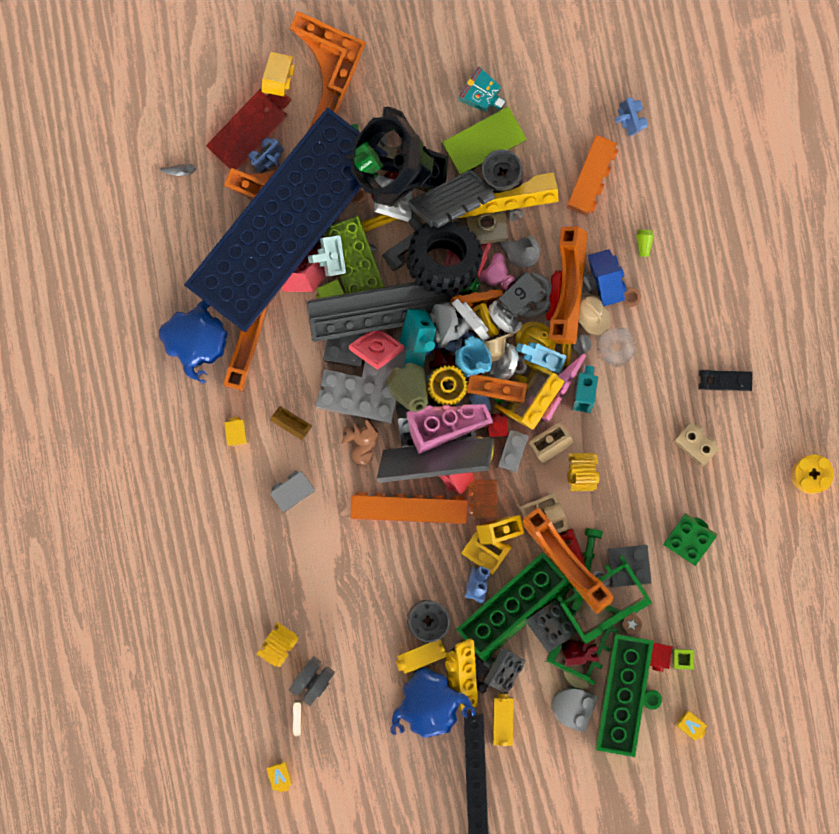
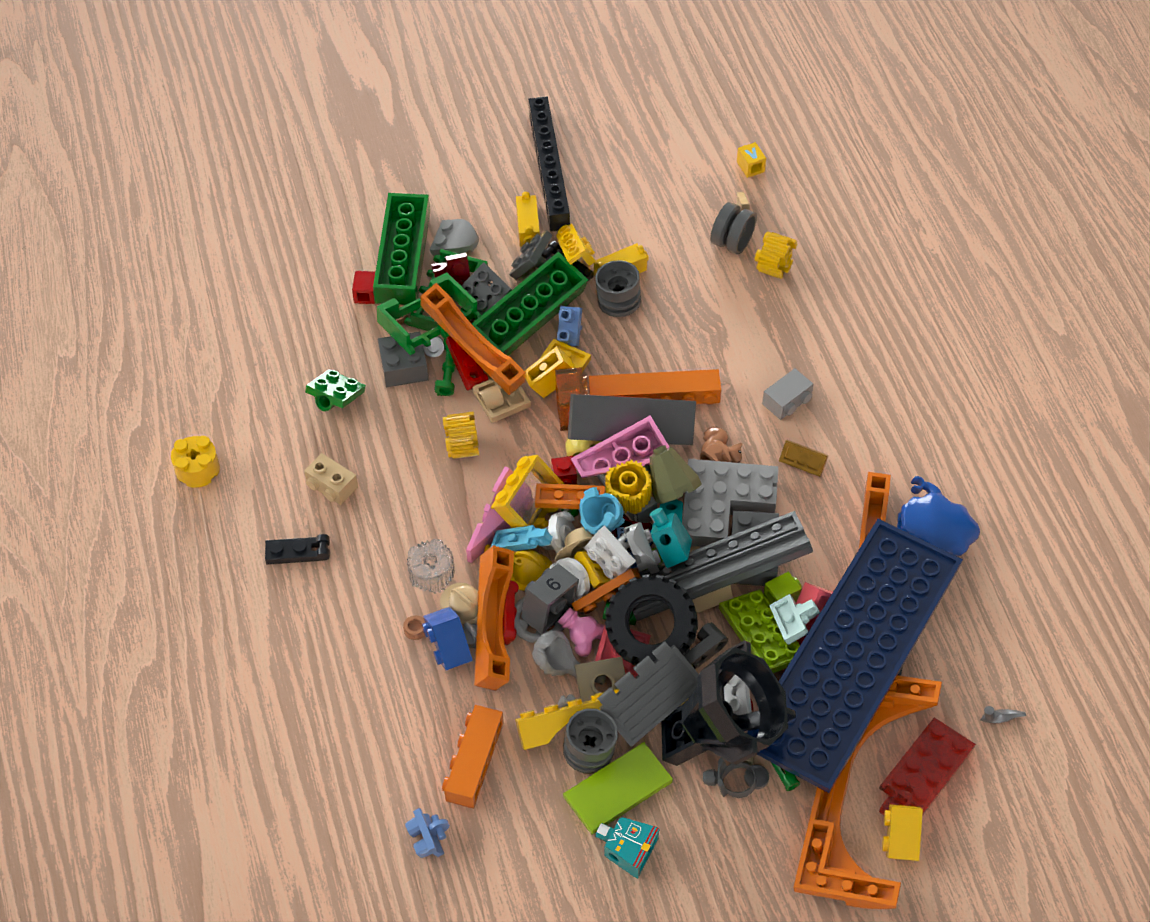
camera: 175 degrees right, 30 degrees down
(235, 432) = (864, 442): yellow brick -> none
(268, 156) = (893, 735): medium blue hips -> none
(367, 159) = (765, 694): green piece -> none
(376, 348) = (717, 518): coral plate -> none
(429, 705) = (605, 220): blue piece -> none
(513, 451) = (545, 443): light grey brick -> none
(551, 442) = (492, 464): tan brick -> none
(582, 344) = (470, 571): light grey tile -> none
(585, 395) = (464, 515): teal torso -> none
(644, 242) = (401, 688): lime cone -> none
(652, 699) = (370, 254): green tile -> none
(682, 659) = (340, 282): lime brick -> none
(691, 725) = (329, 233): yellow brick -> none

